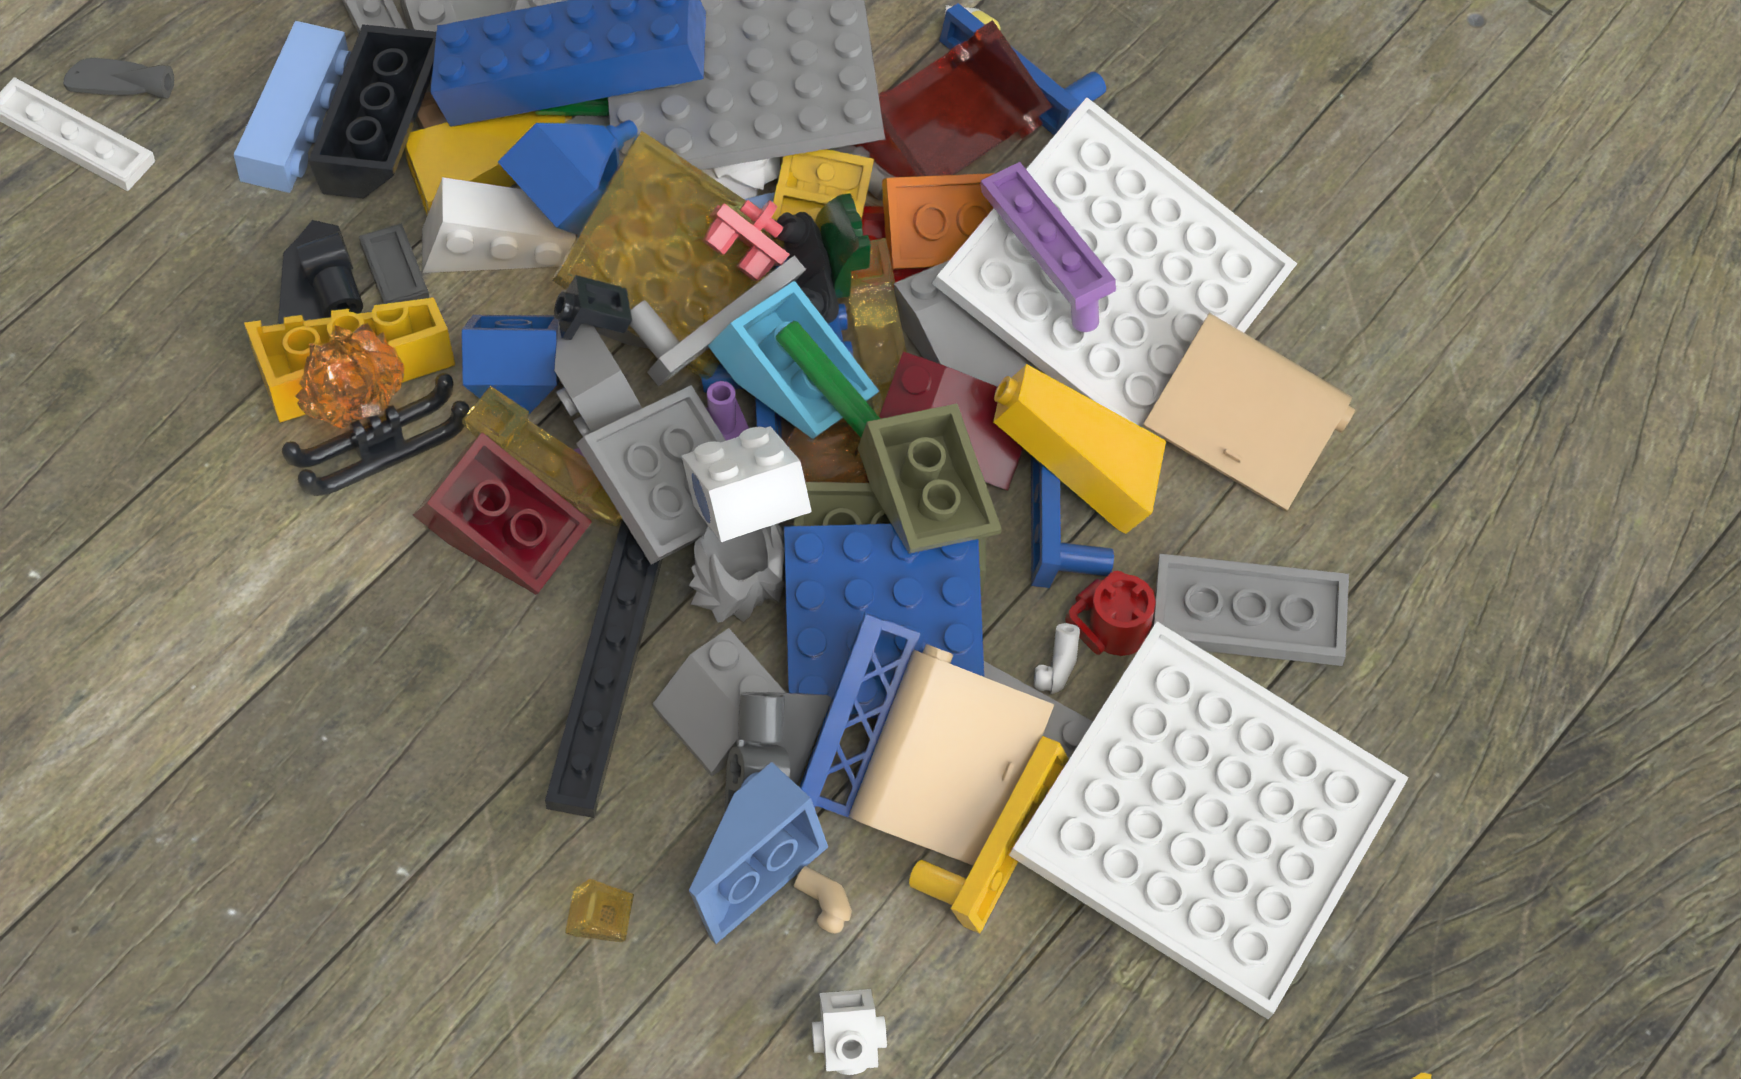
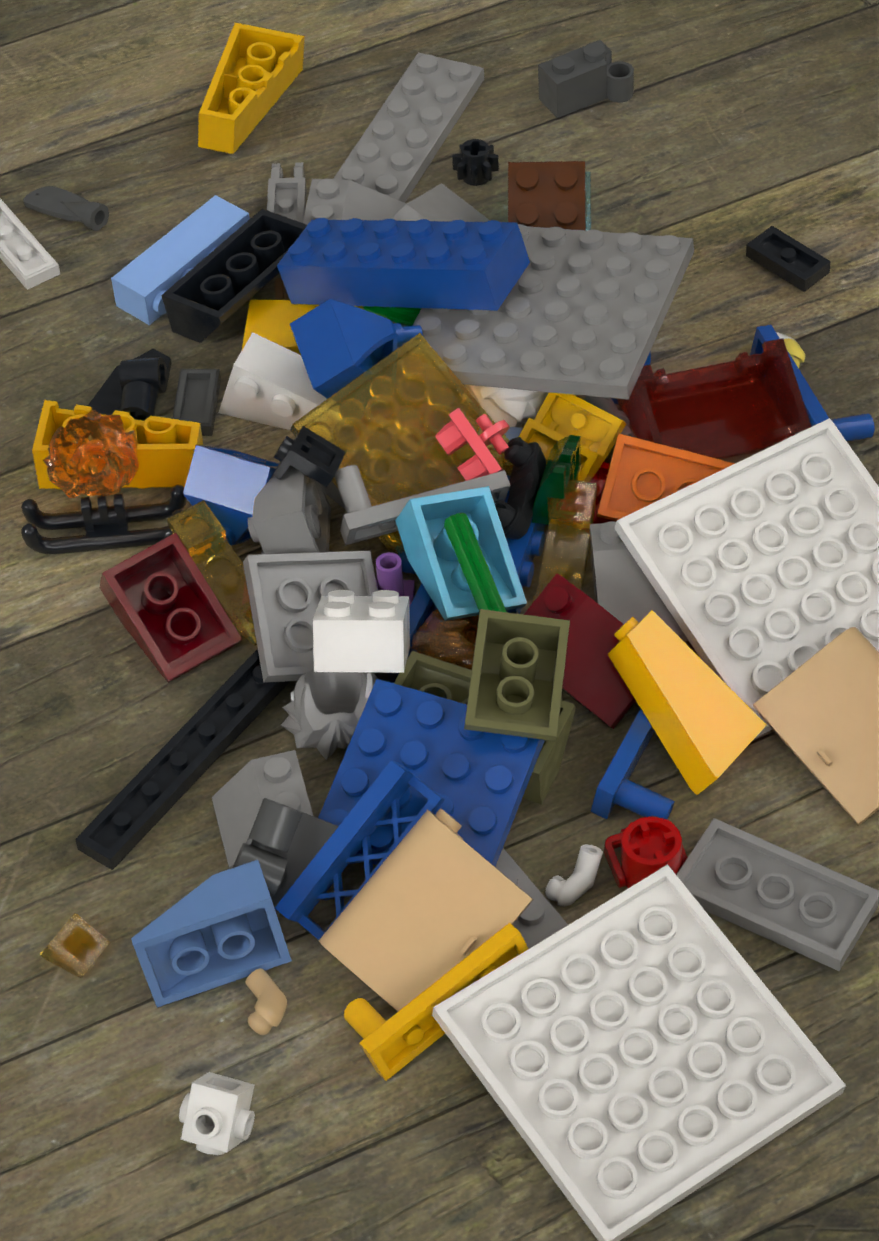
camera: 30 degrees right, 10 degrees down
(1051, 242) = (729, 524): medium lavender piece -> none

